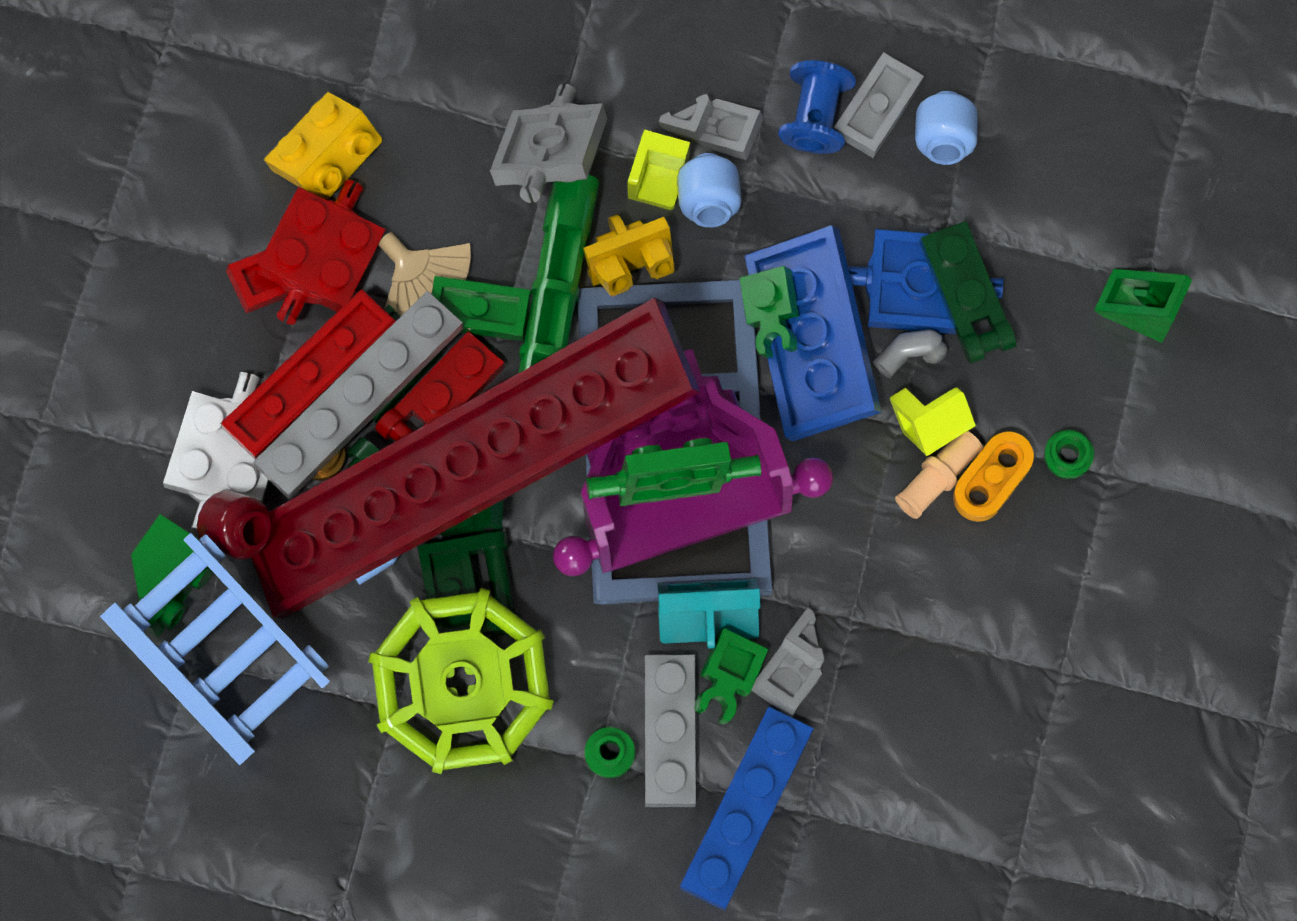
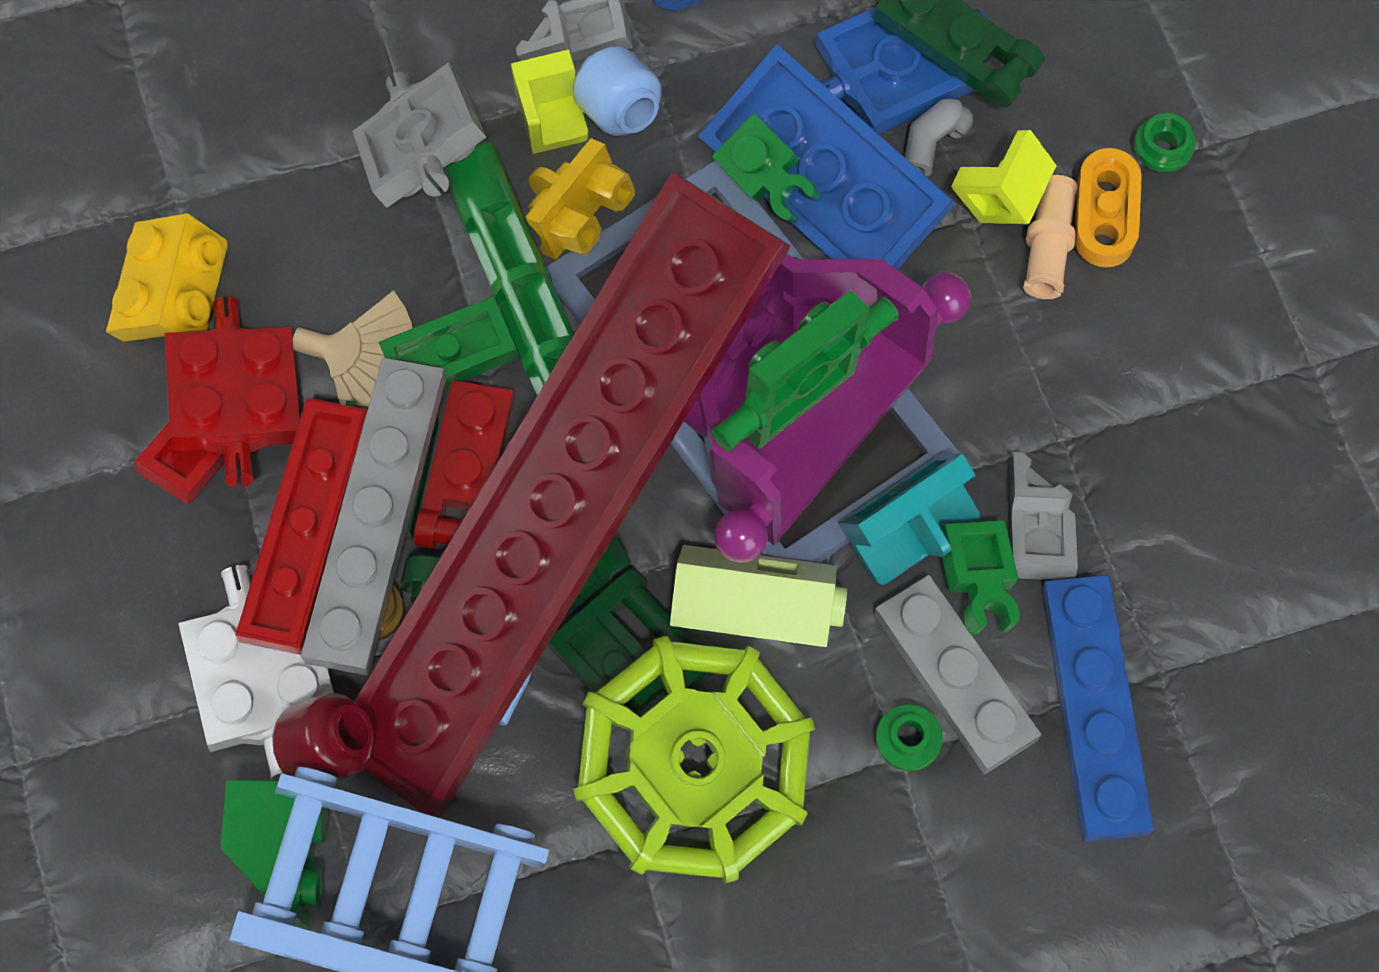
camera: 30 degrees left, 5 degrees down
(573, 606) = (758, 597): none -> yellowish green brick

